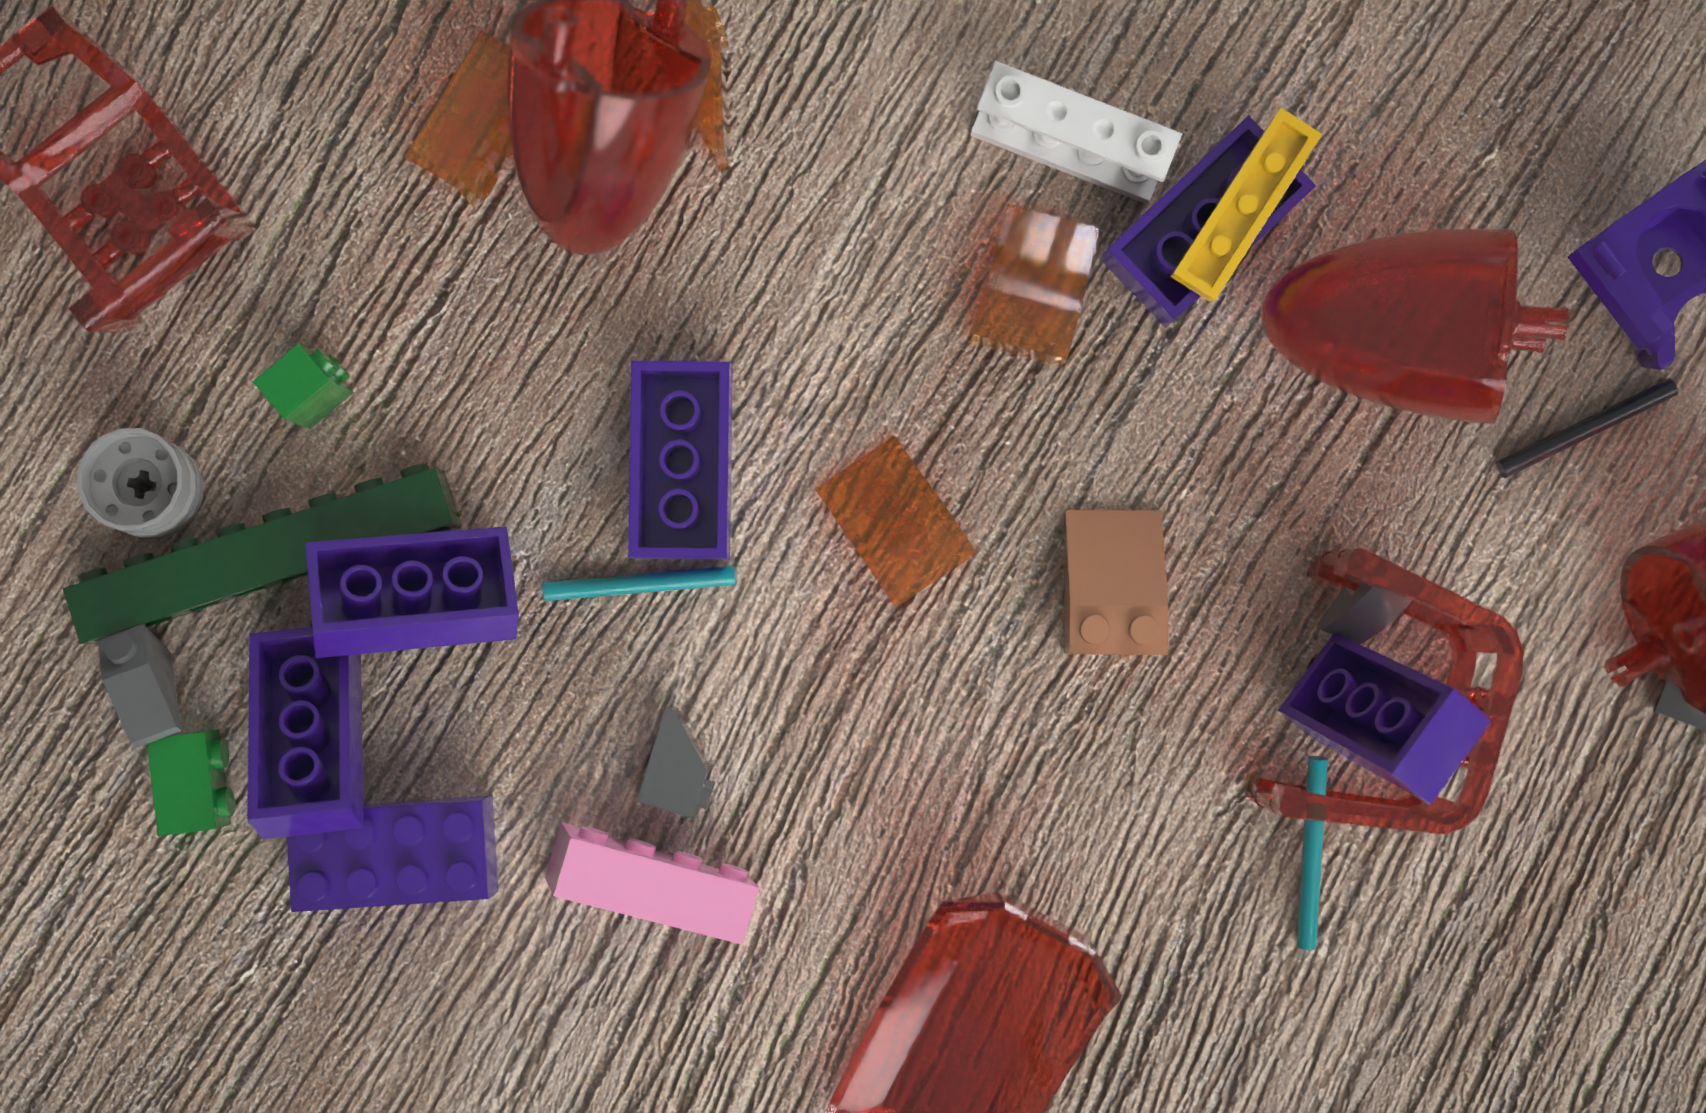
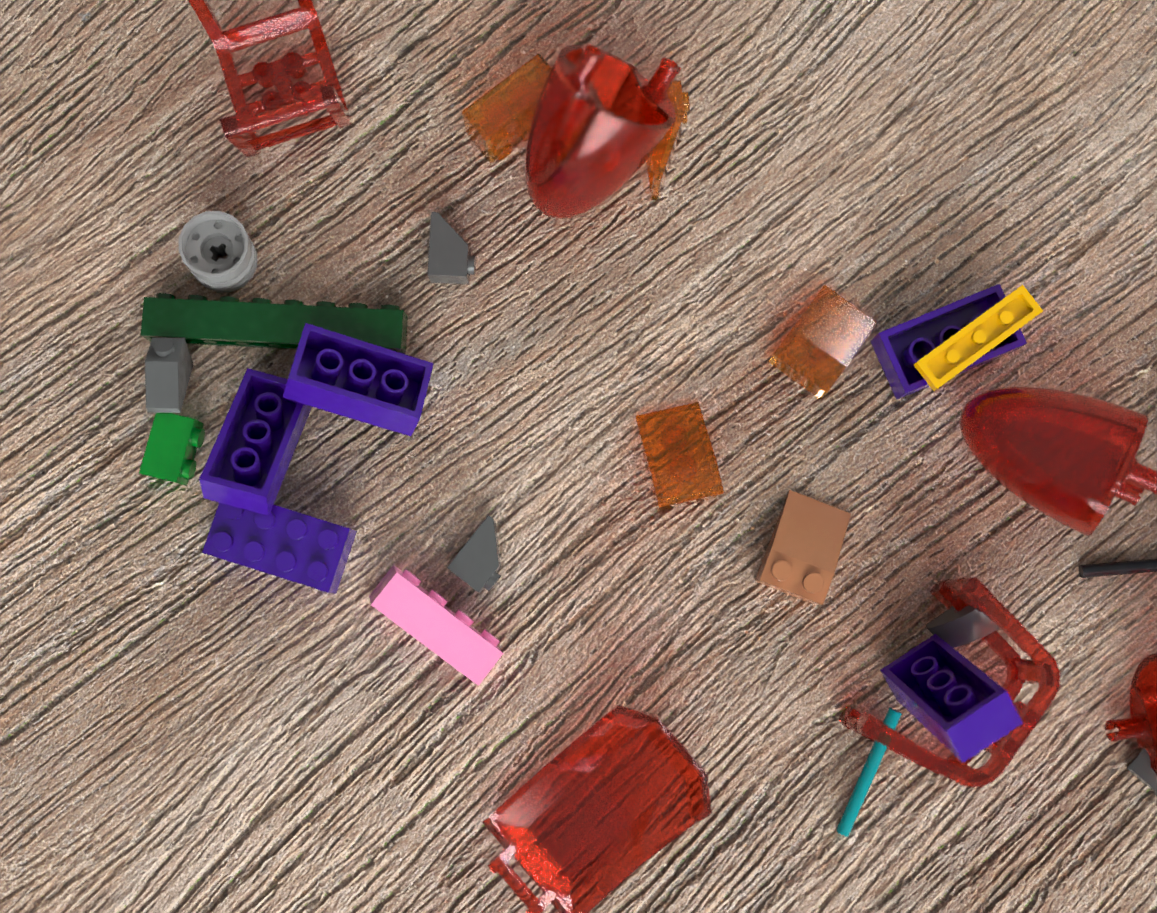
camera: 25 degrees right, 5 degrees down
(304, 385) = (343, 229): green brick -> none
(466, 362) = (448, 254): none -> dark grey slope
(639, 583) = (502, 433): teal bar -> none
(680, 460) = (558, 364): dark purple brick -> none
(1074, 133) = (884, 254): white fence -> none

